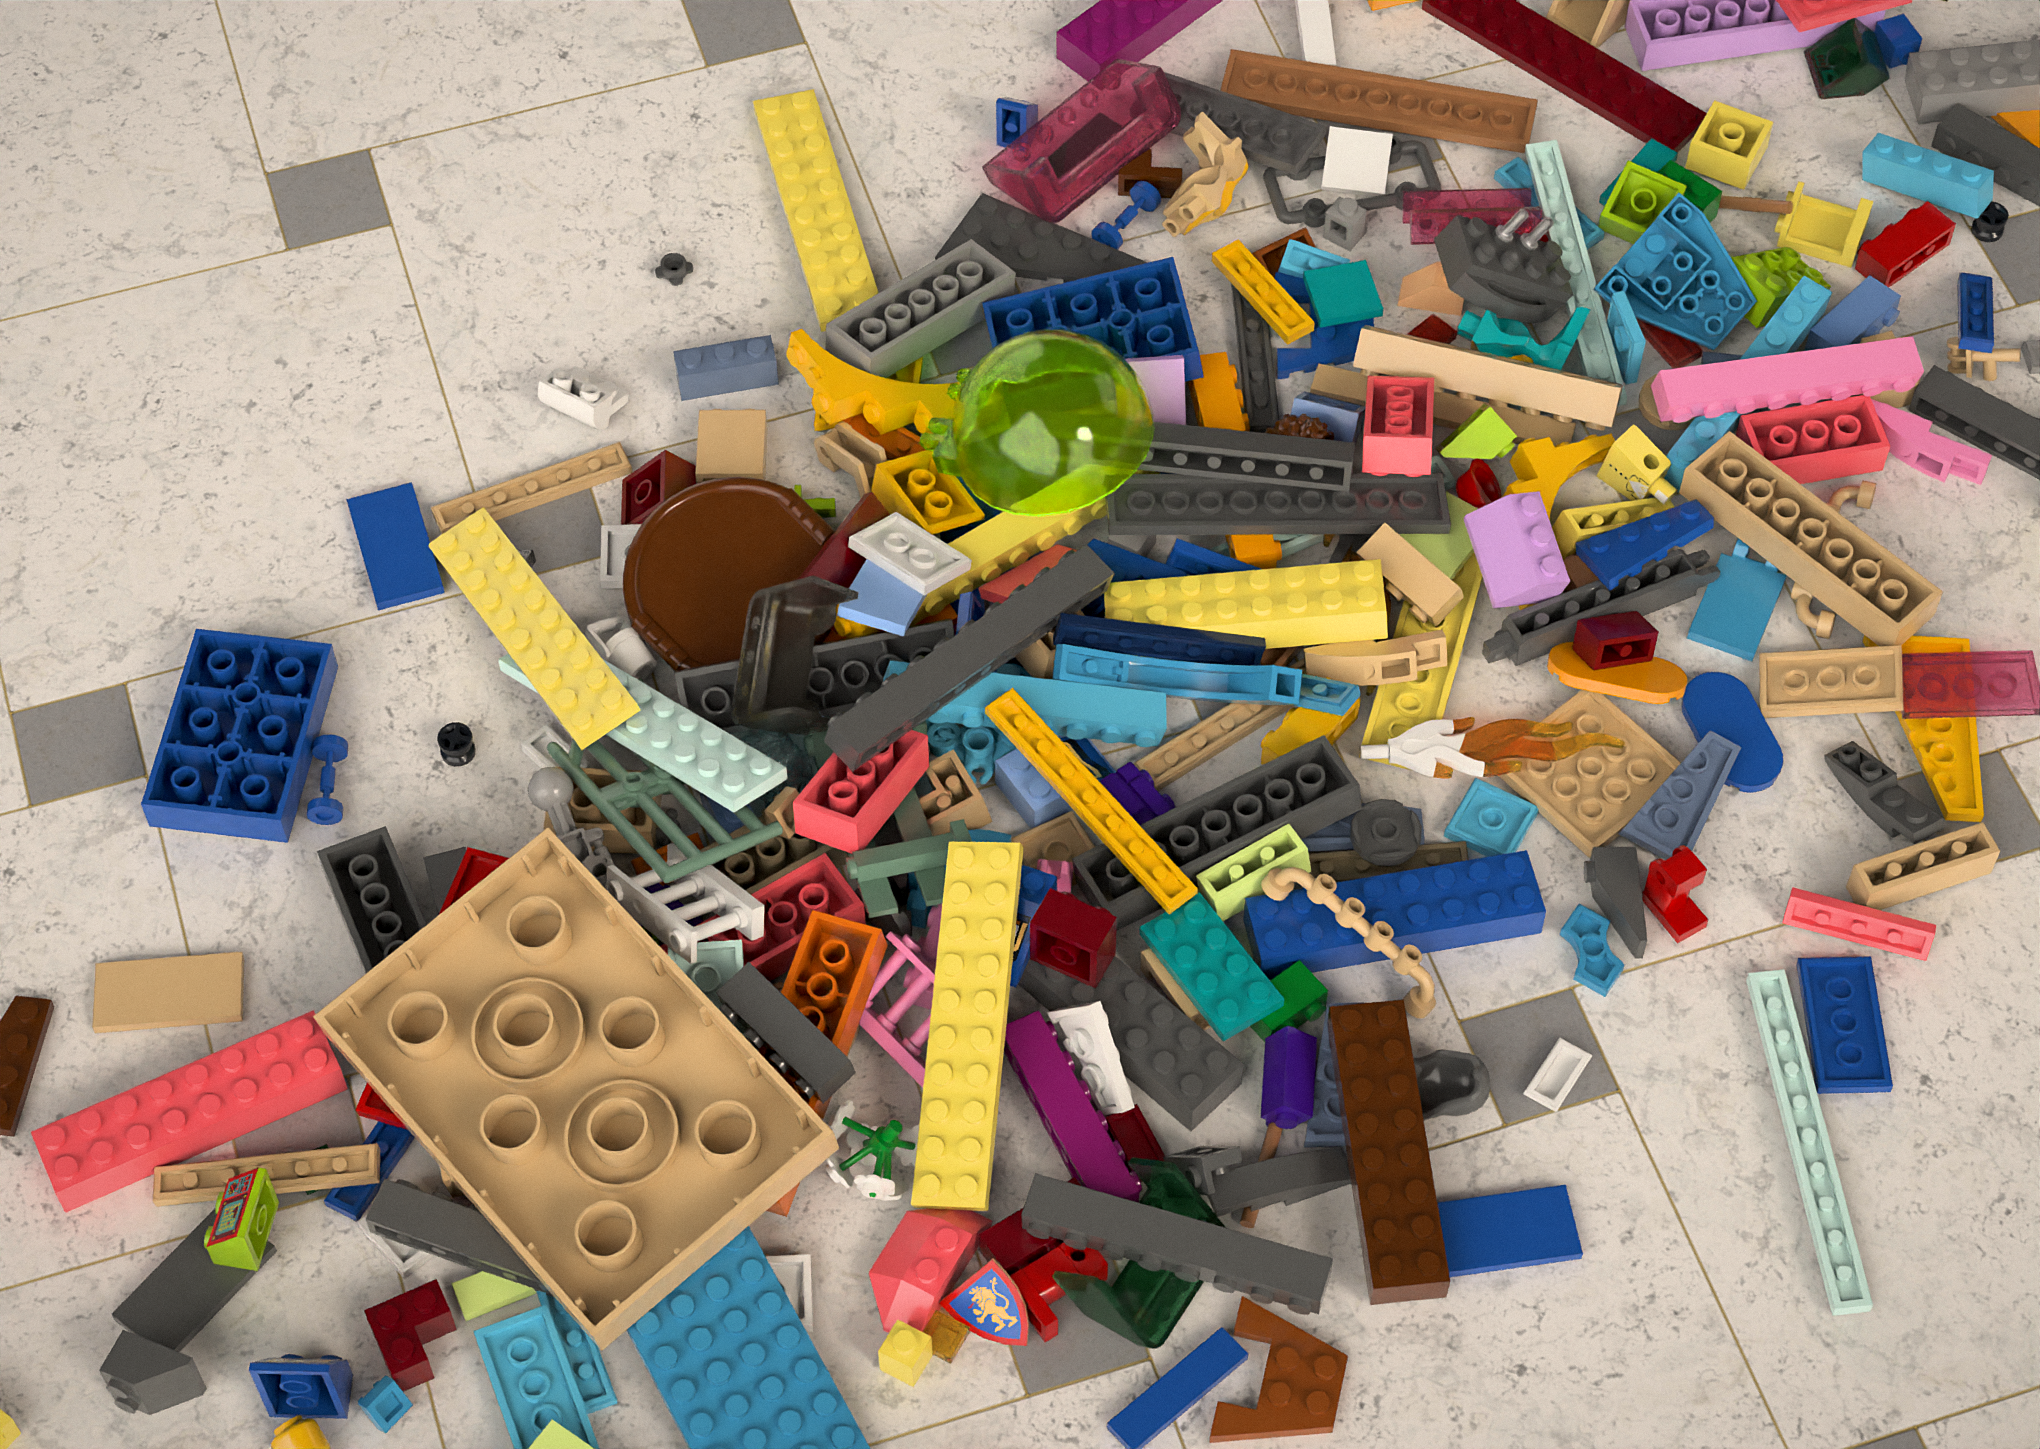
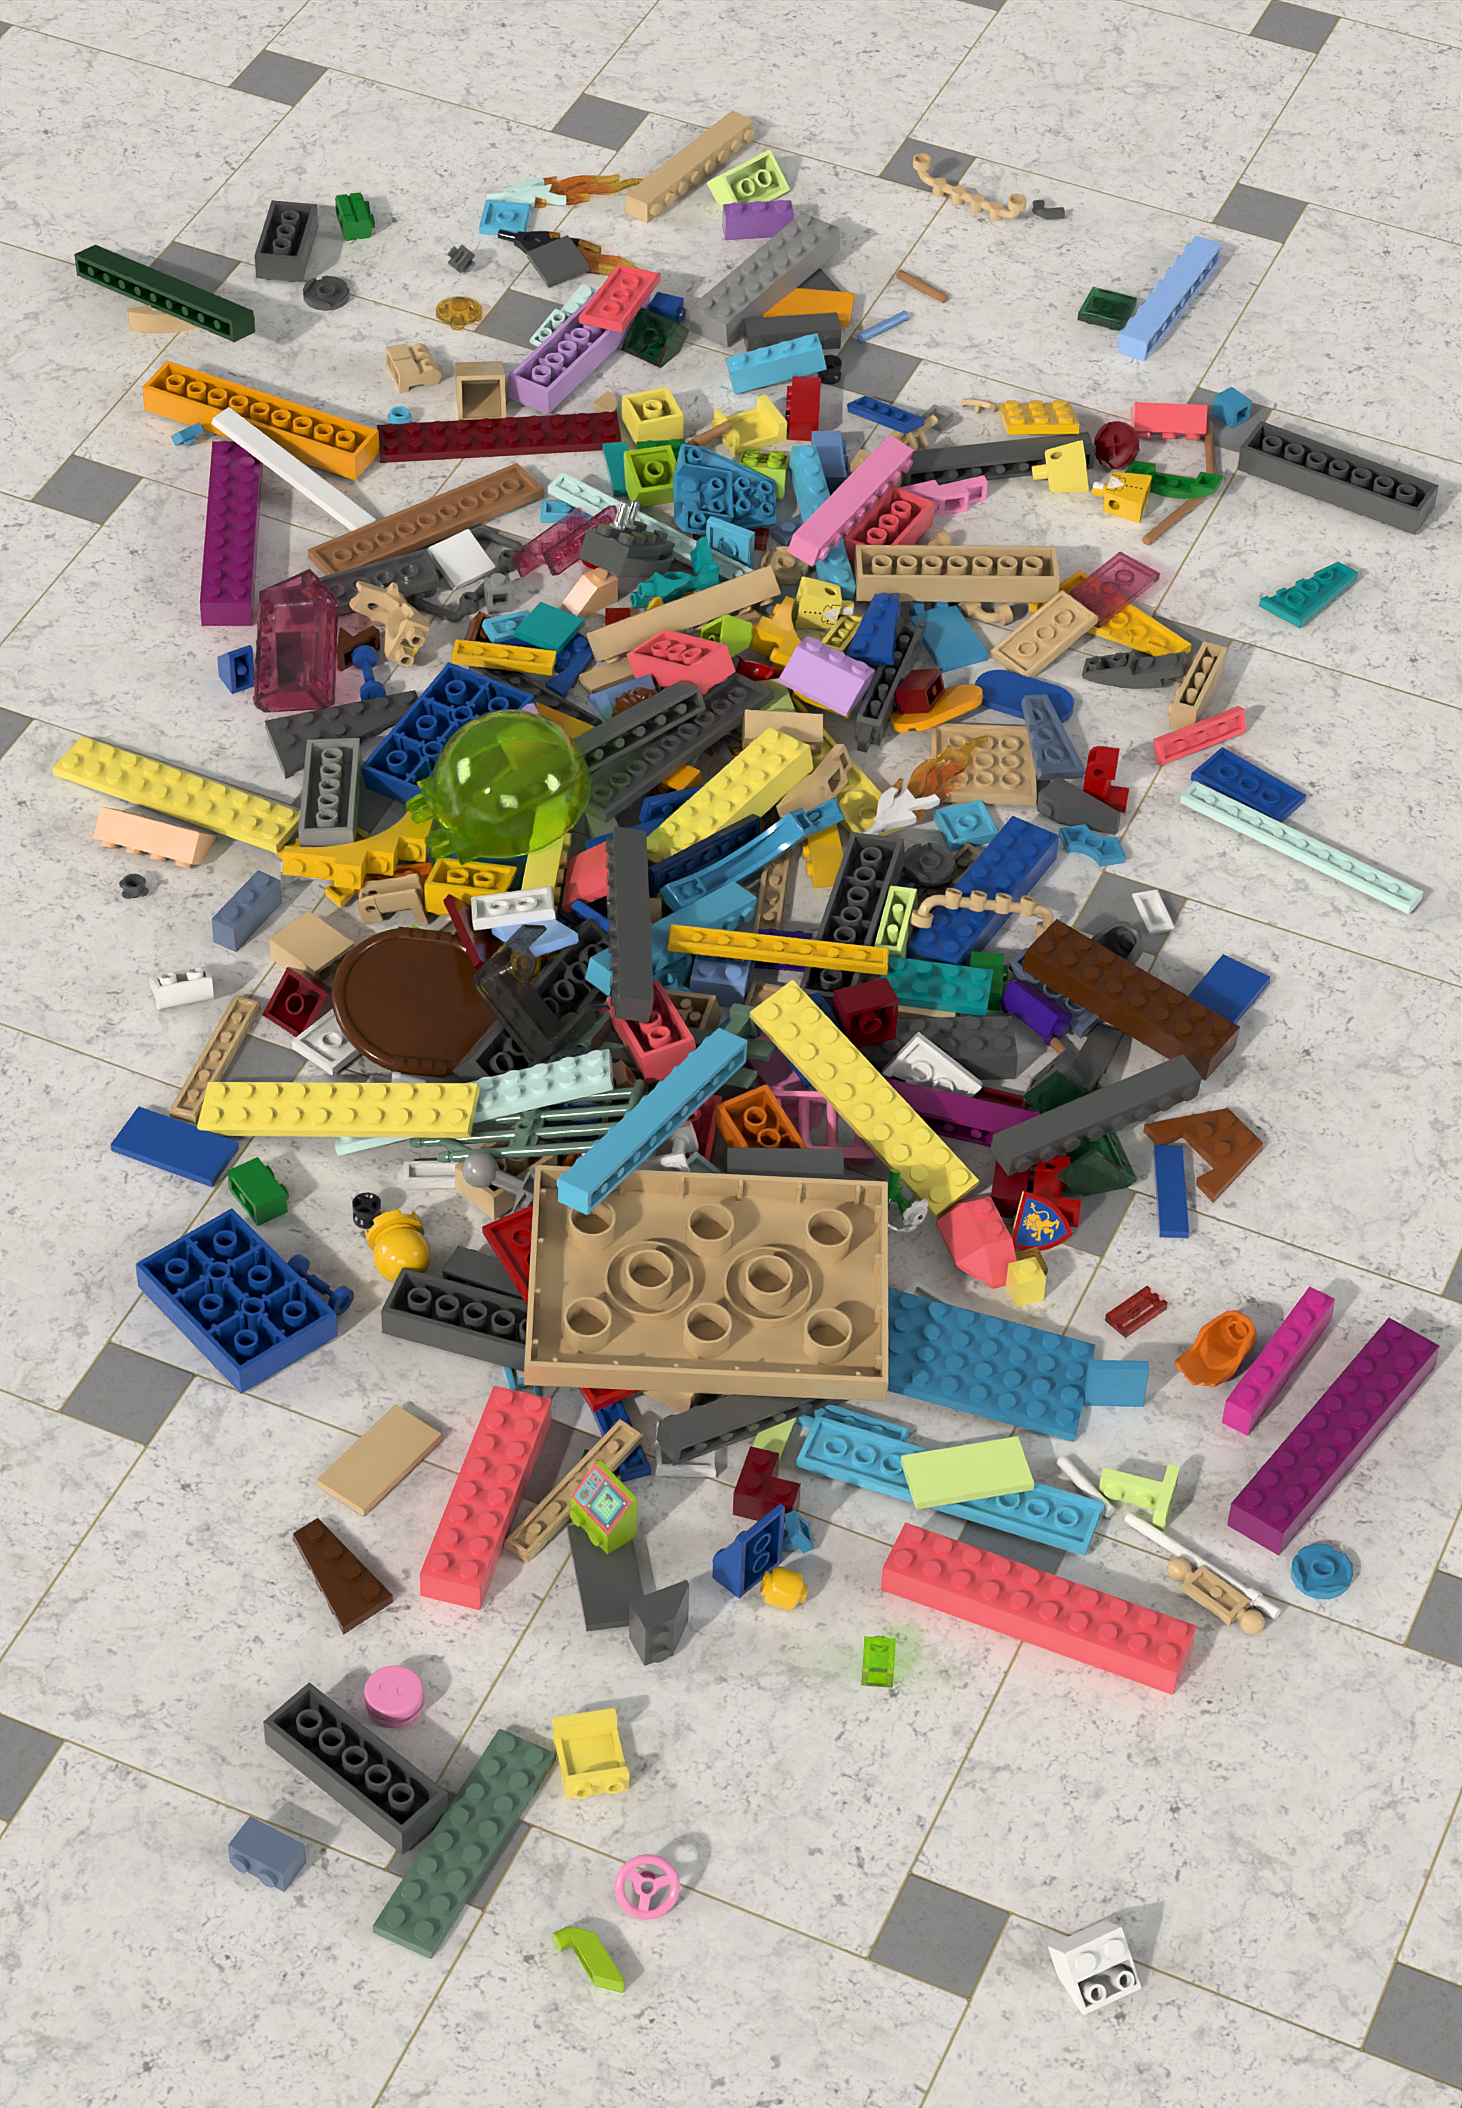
camera: 50 degrees left, 10 degrees down
(395, 646) = (258, 1191): none -> green brick
(421, 805) = (398, 1244): none -> yellow tile
(701, 874) = (651, 1121): none -> medium azure brick
(747, 232) = (152, 836): none -> light nougat slope
(1707, 96) = (606, 402): none -> tan tile

